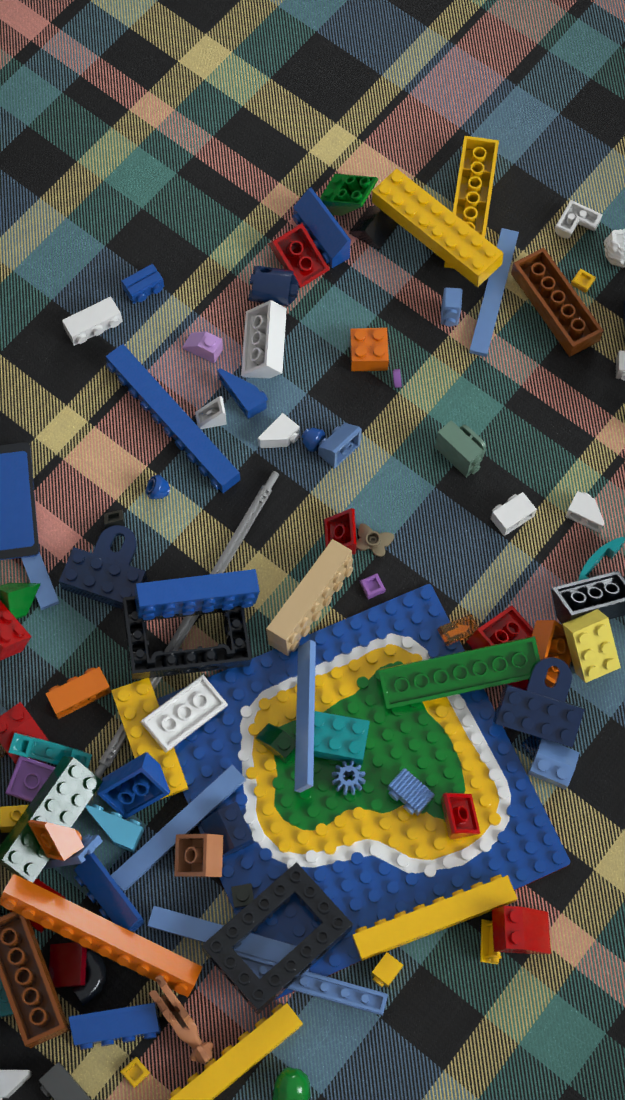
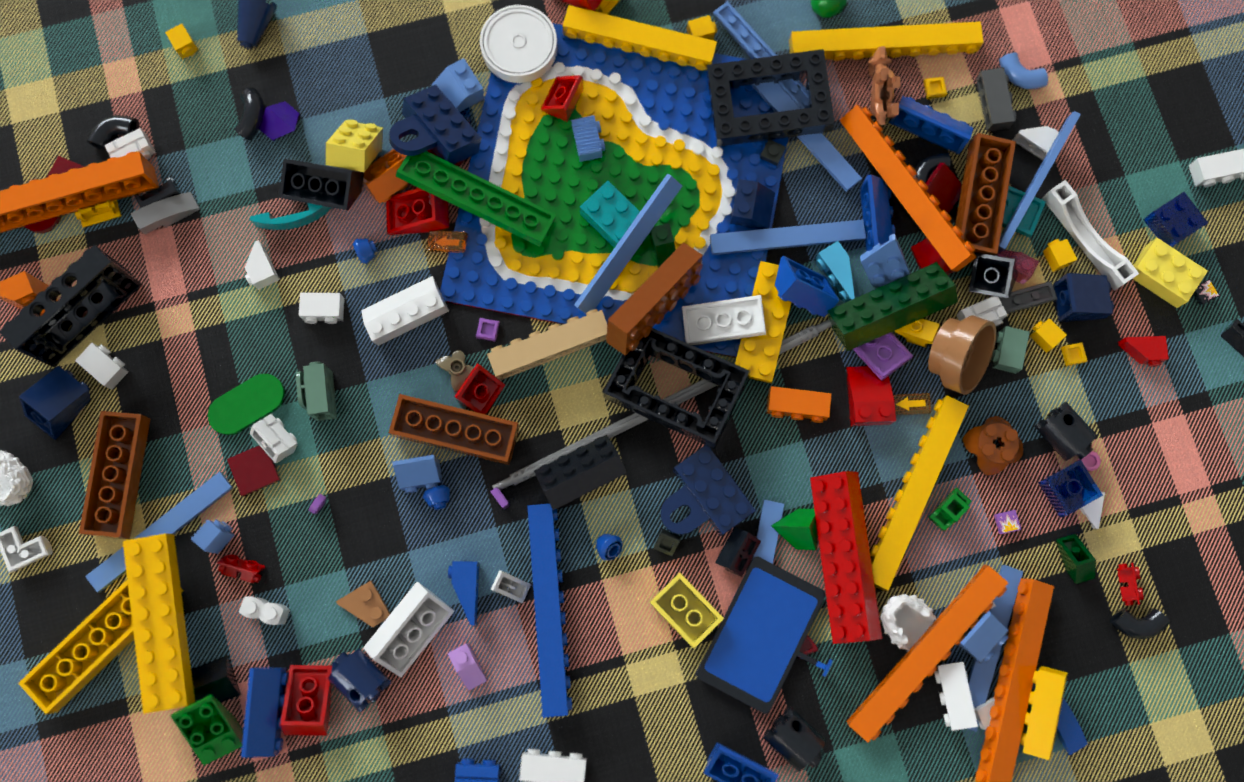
camera: 145 degrees left, 10 degrees up
(45, 750) = (854, 367): teal slope -> none
(53, 547) = (738, 551): none -> black hinge
(56, 840) = (899, 271): slope -> none
(66, 479) = (686, 610): none -> light yellow brick
(196, 594) = (651, 395): blue brick -> none
(198, 855) = (789, 198): nougat brick -> none
(216, 520) = (580, 472): none -> black brick
(250, 680) = (654, 299): none -> dark orange brick
(264, 468) = (500, 498): none -> medium lavender tile
(279, 433) = (461, 523): white slope -> none
(307, 339) = (366, 604): none -> medium nougat wing
(337, 491) = (454, 429): none -> dark orange brick
(348, 785) = (633, 177): medium blue gear -> none
(369, 349) = (320, 550): orange brick -> none
(374, 288) = (261, 609): none -> white brick
(419, 305) = (249, 569): none -> red hinge
(448, 553) = (404, 311): none -> white slope
(464, 372) = (253, 470): none -> dark red tile
(466, 398) = (273, 438): none -> white brick
(509, 411) = (246, 404): none -> green tile
(517, 578) = (365, 250): none -> blue cone
(533, 835) = (518, 43): none -> white brick
(583, 280) = (72, 484): yellow tile -> none

